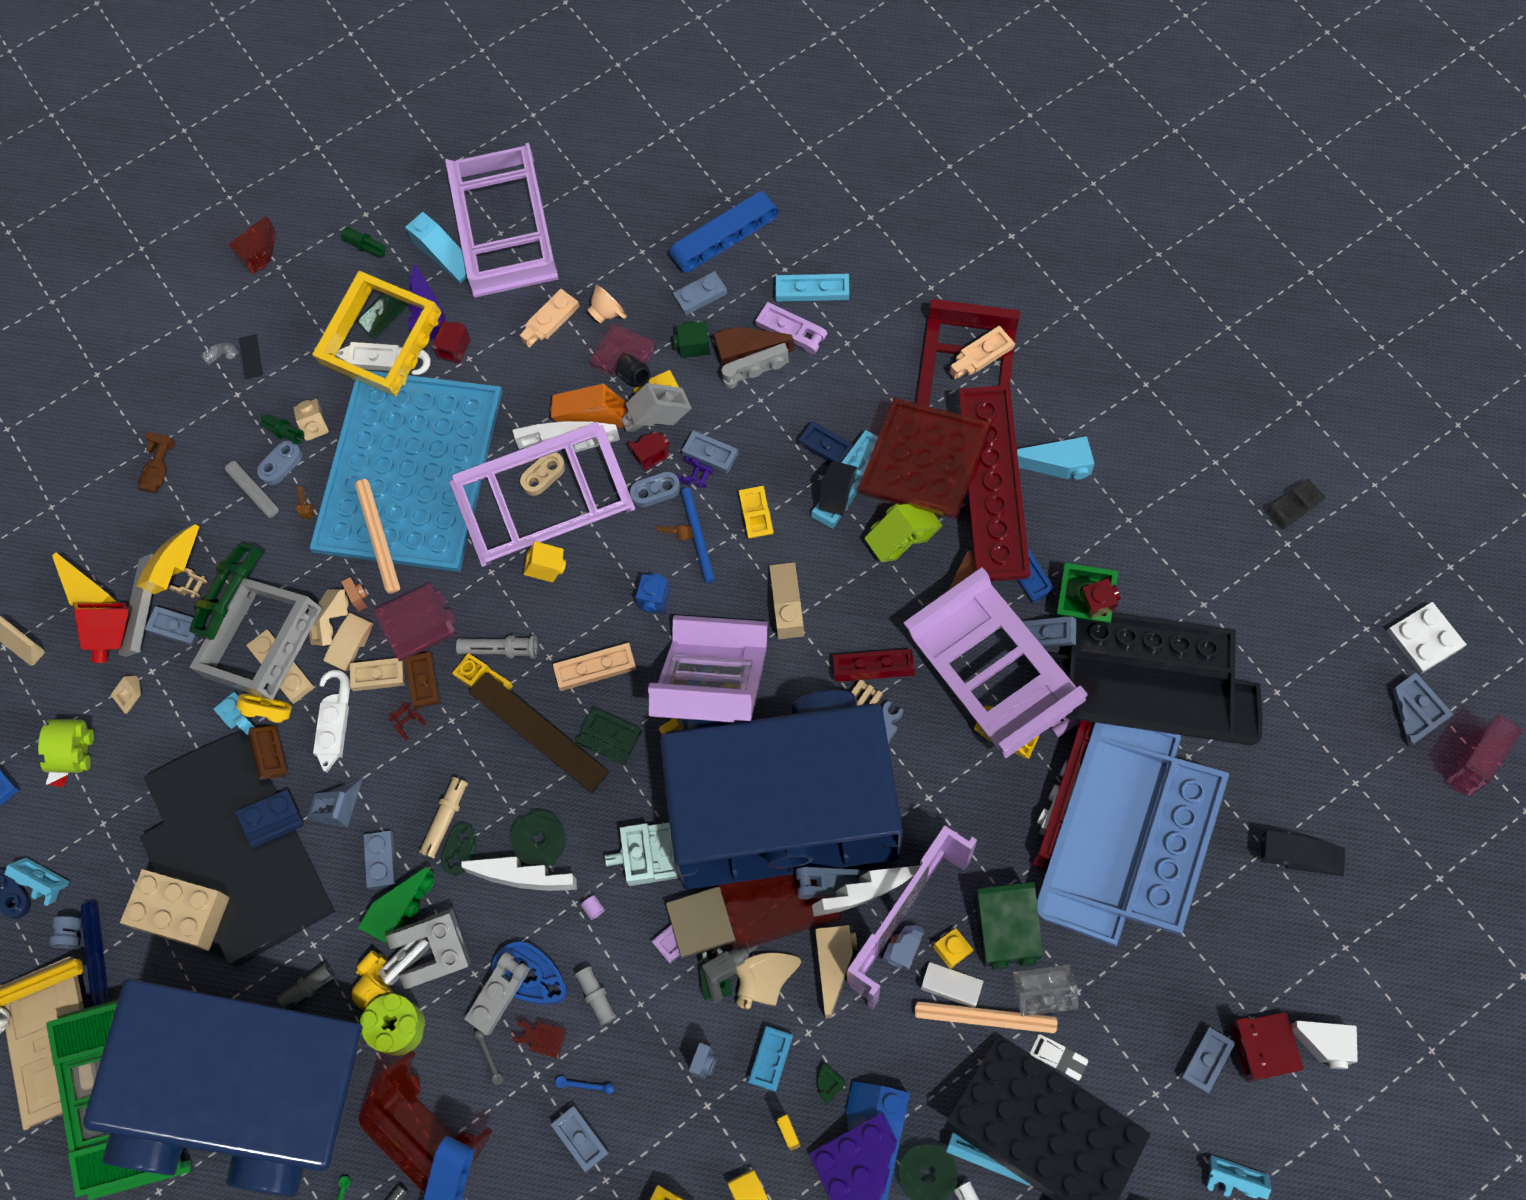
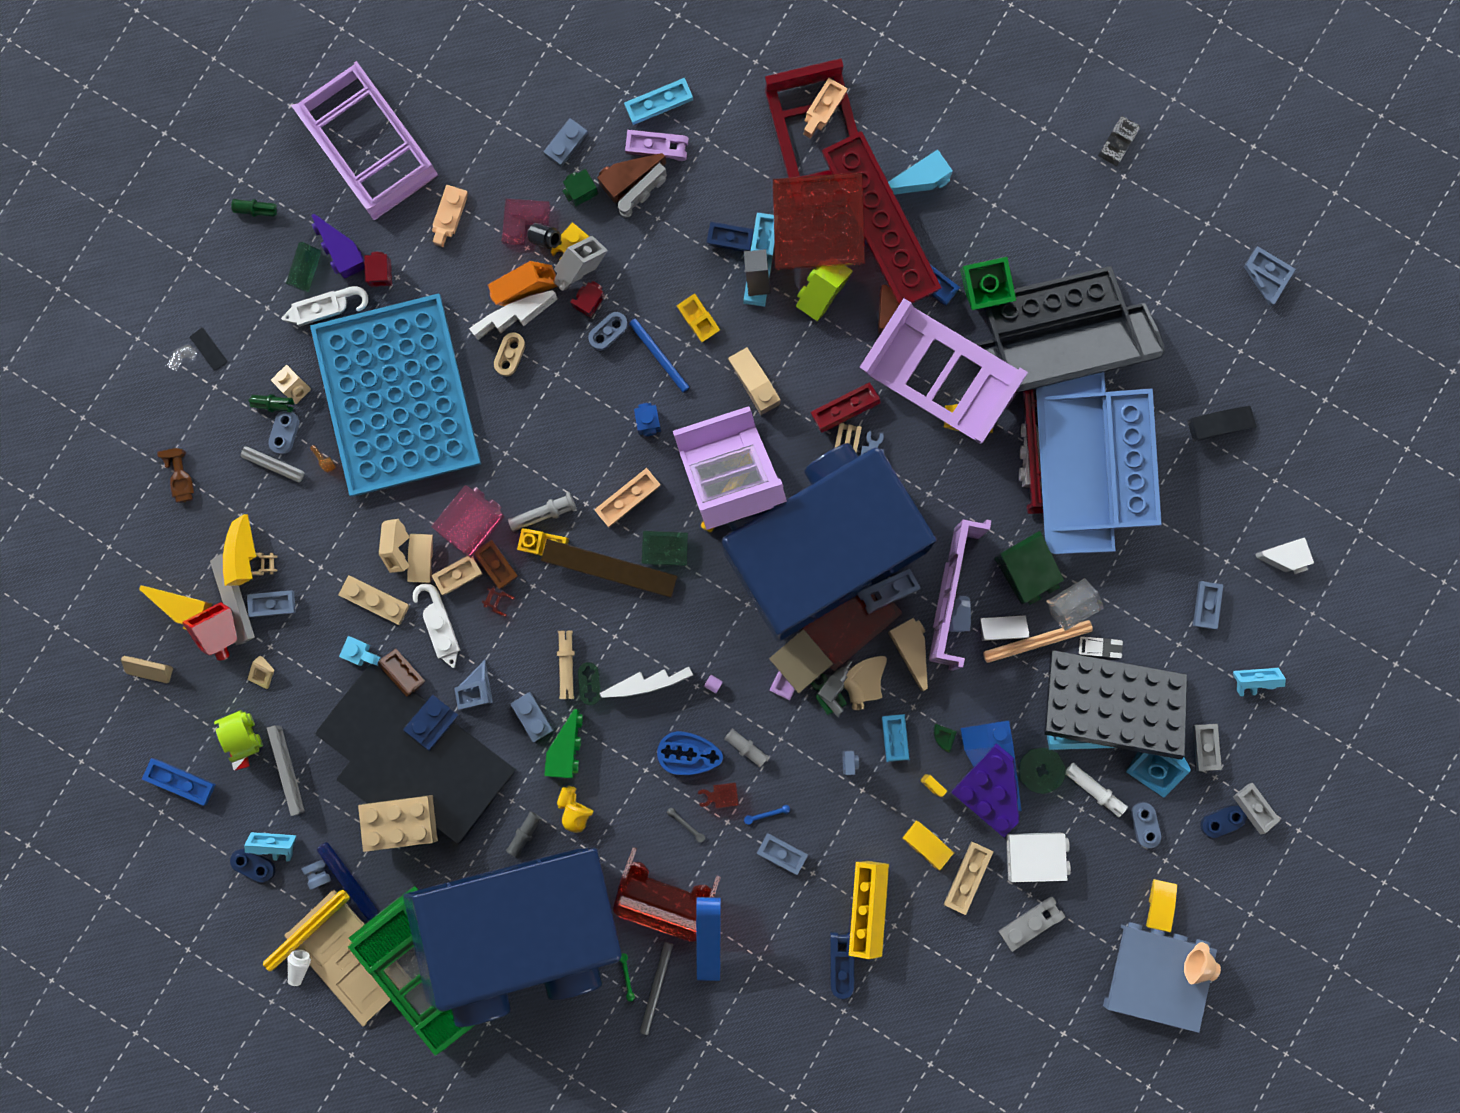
camera: 25 degrees left, 15 degrees up
(95, 805) = (285, 770): none -> light grey tile
(224, 570) = (306, 576): dark green bar -> none
(253, 705) = (380, 639): yellow plate -> none
(255, 245) = (161, 249): clear red slope -> none
(282, 651) = (377, 587): light grey window -> none
(346, 316) = (279, 282): yellow window -> none
(355, 593) = (406, 517): nougat plate -> none
(377, 536) = (401, 463): light nougat axle -> none
(378, 1019) = (618, 830): lime brick -> none
(403, 960) = (589, 782): white slope -> none
(437, 246) = (323, 187): medium azure slope -> none
(446, 944) = (617, 757): light grey brick -> none
(489, 469) = (471, 374): lavender piece -> none
(497, 994) = (672, 779): light grey plate -> none
(530, 826) = (655, 640): clear green plate -> none
(544, 562) = (548, 429): yellow brick -> none
(604, 305) = (492, 186): light nougat piece -> none
(645, 854) = (738, 625): light aqua plate -> none
(683, 532) = (647, 357): clear orange hand -> none
(691, 479) = (642, 298): dark purple piece -> none
(710, 452) = (638, 281): sand blue plate -> none
(723, 231) = (561, 78): blue beam -> none
(871, 886) = (918, 585): white slope -> none
(953, 948) = (994, 601): yellow plate -> none
(1053, 631) = (974, 324): sand blue plate -> none
(1100, 598) = (1003, 286): dark red brick -> none
(1266, 1046) = (1245, 578): dark red bracket -> none
(1426, 638) = (1255, 213): white plate -> none
(1484, 755) = (1329, 293): clear pink brick -> none

